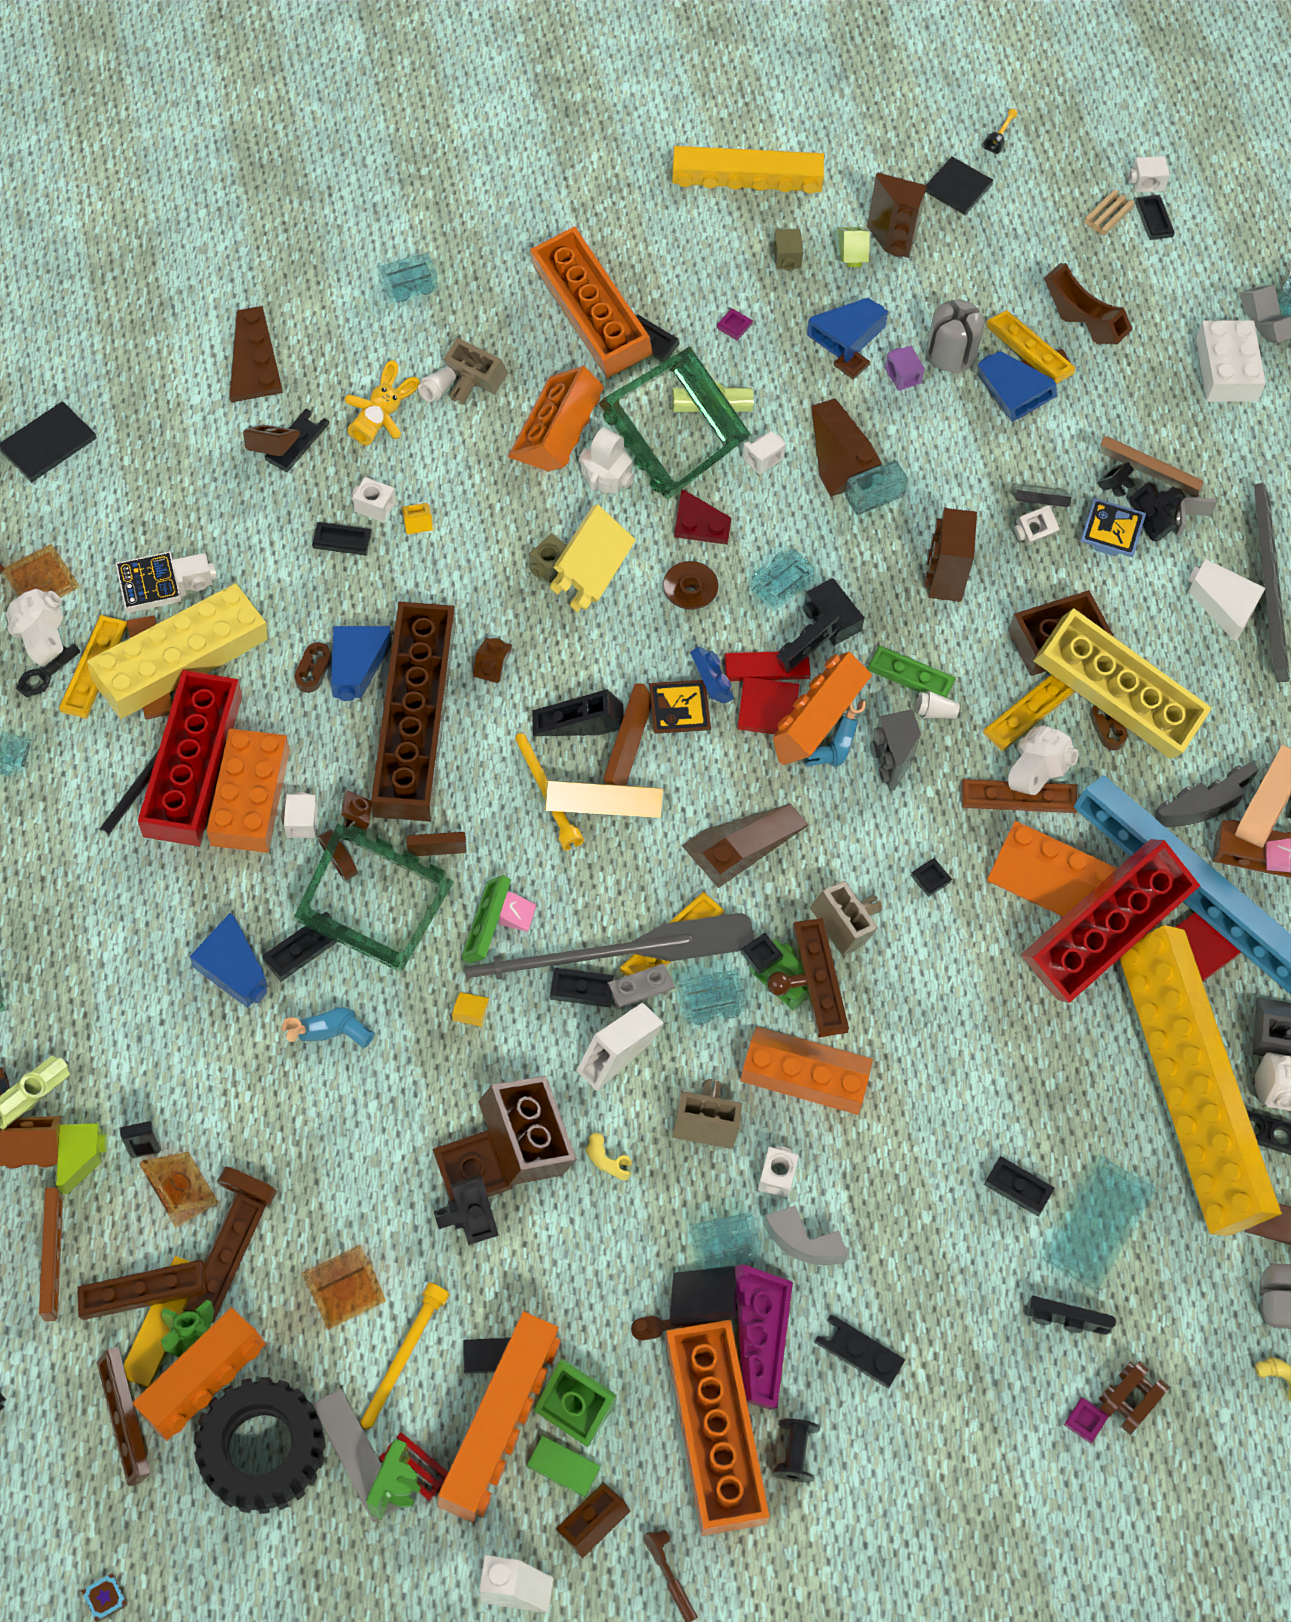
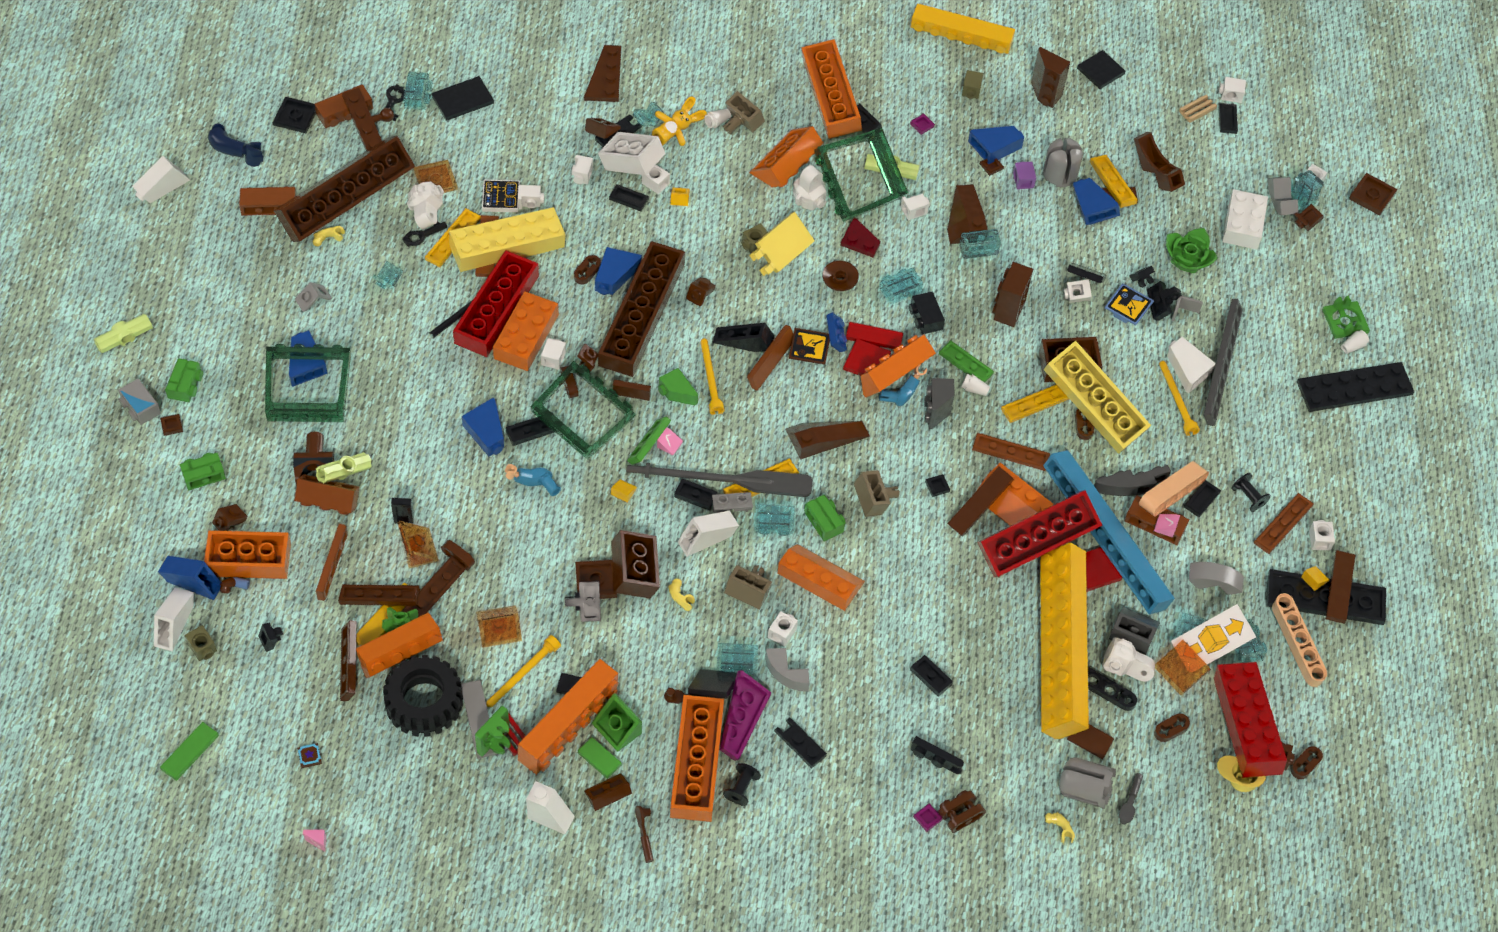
camera: 15 degrees right, 5 degrees down
(78, 1153) = (364, 511): lime slope -> none
(260, 511) = (582, 169): none -> white brick
(329, 470) = (631, 153): none -> white brick
(334, 406) = (647, 117): none -> clear light blue bracket
(408, 277) = (719, 48): clear light blue brick -> none
(504, 823) = (677, 388): none -> bright green slope
(603, 799) = (743, 388): tile -> none
(761, 953) = (812, 500): black tile -> none
(809, 640) = (904, 324): black hinge -> none
(817, 976) = (842, 522): reddish brown plate -> none
(853, 245) = (1016, 92): lime slope -> none
(998, 138) = (1138, 45): black hinge -> none
(1005, 889) = (980, 501): none -> reddish brown tile
(1044, 755) = (1033, 429): white piece -> none
(1098, 1224) = (974, 710): clear light blue tile -> none
(1151, 466) = (1166, 272): medium nougat tile -> none
(1173, 426) = (1191, 251): none -> bright green brick
(1255, 689) = (1189, 425): none -> yellow piece

